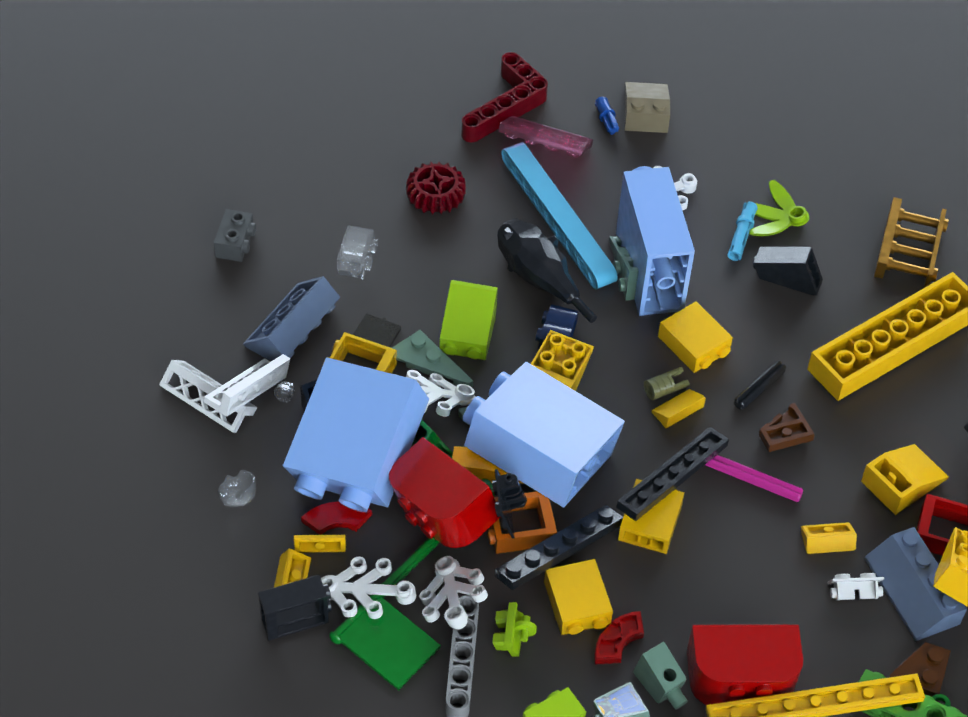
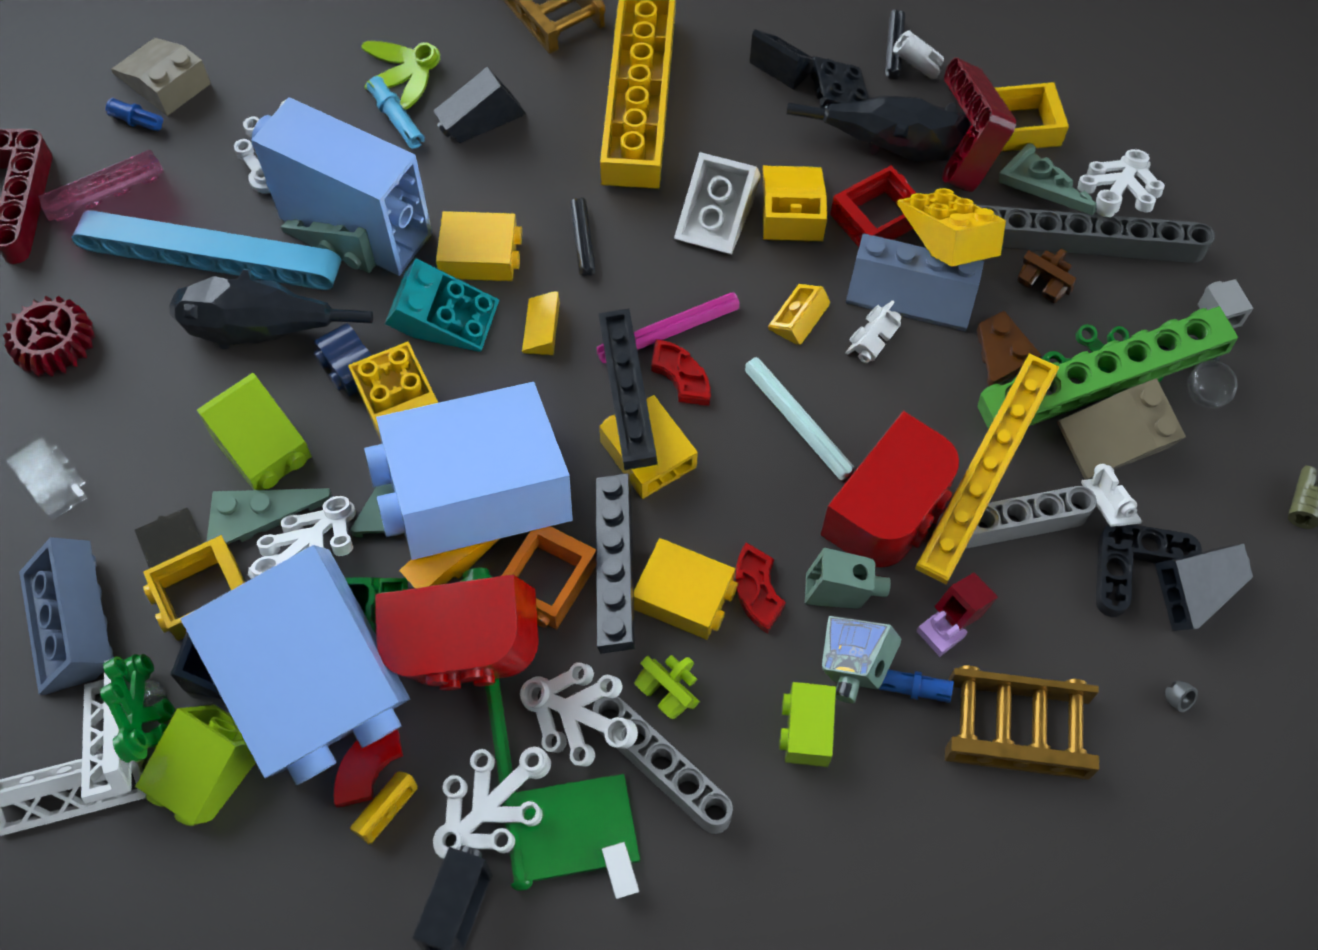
camera: 50 degrees left, 10 degrees up
(238, 490) = (234, 851): clear hair -> none
(249, 392) = (131, 741): none -> green plant
(264, 436) = (196, 764): none -> lime slope
(292, 567) = (398, 874): yellow slope -> none
(383, 680) = (620, 870): none -> white piece
(509, 497) = (522, 560): black hinge -> none
(635, 348) = (441, 308): none -> teal slope
(664, 384) = (505, 316): olive hinge -> none
(722, 502) = (683, 371): none -> red tile
(754, 578) = (799, 419): none -> light aqua axle
(786, 430) = (655, 253): reddish brown wing -> none
(856, 437) = (717, 203): none -> white slope

